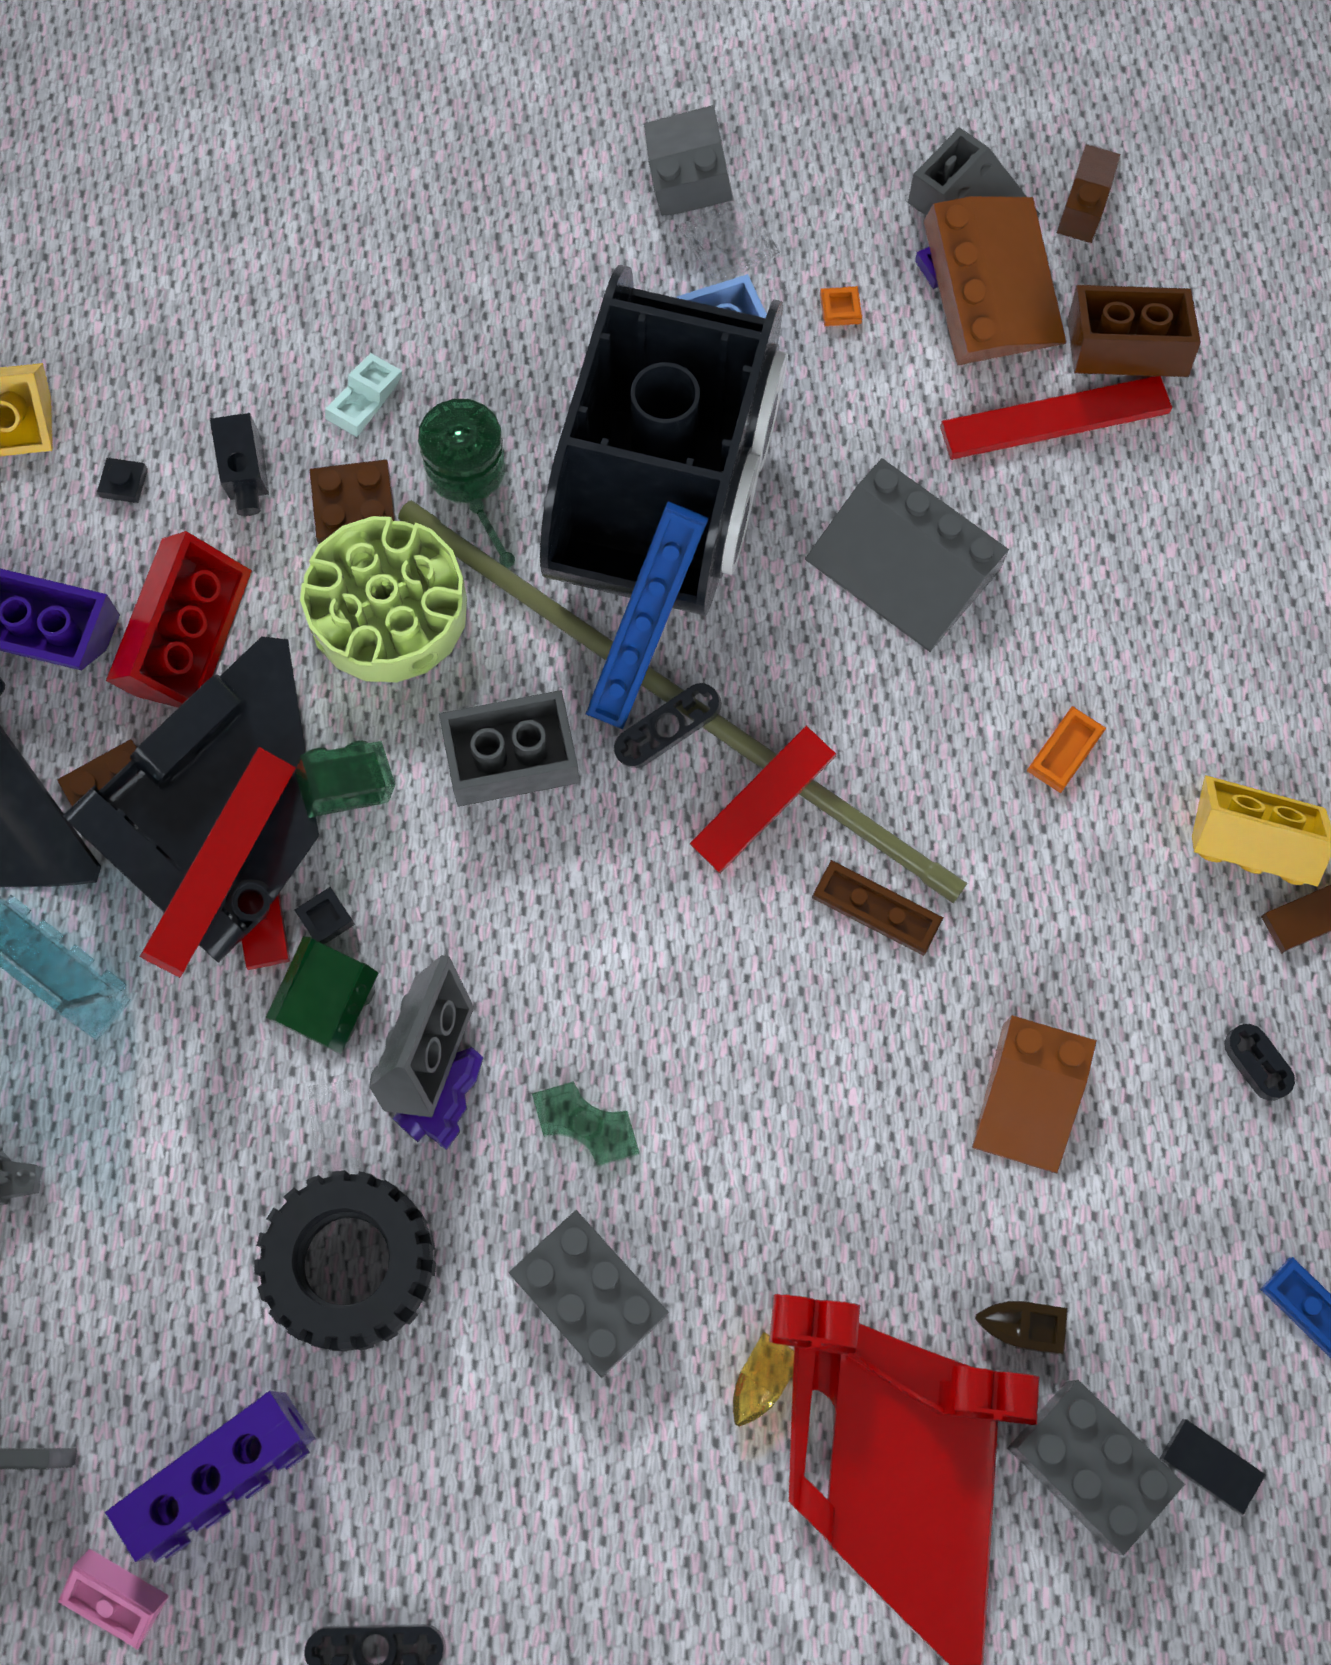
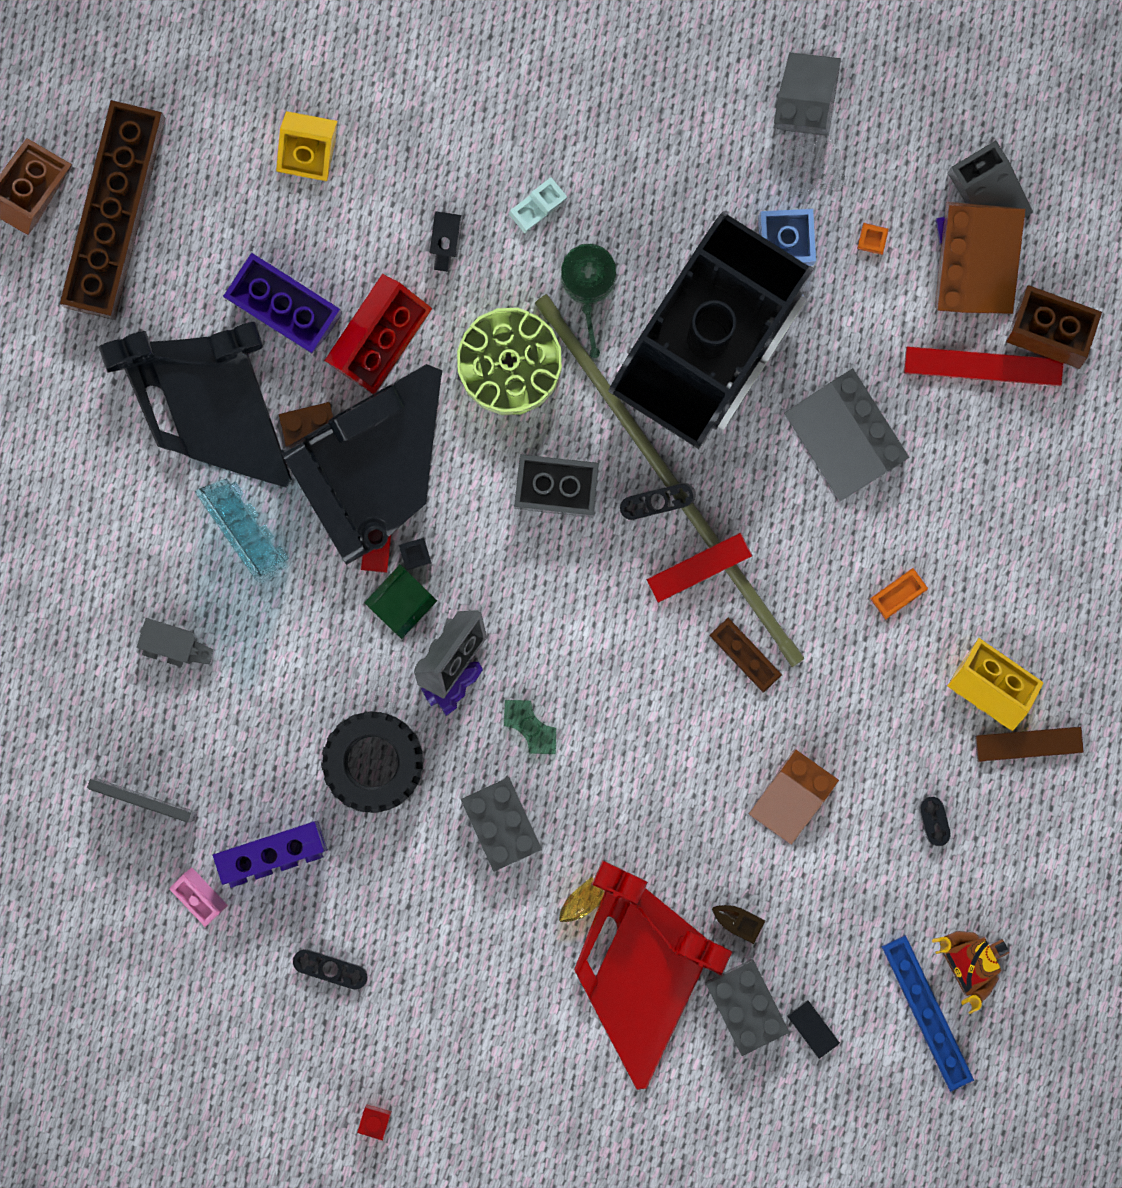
camera: 20 degrees right, 15 degrees up
(122, 480) = (367, 218): black plate -> none
(217, 863) = (365, 507): red tile -> none
(344, 778) = (451, 472): clear green brick -> none
(349, 494) = (509, 280): reddish brown plate -> none
(646, 614) = (662, 442): blue tile -> none
(1088, 193) = (1074, 204): reddish brown slope -> none

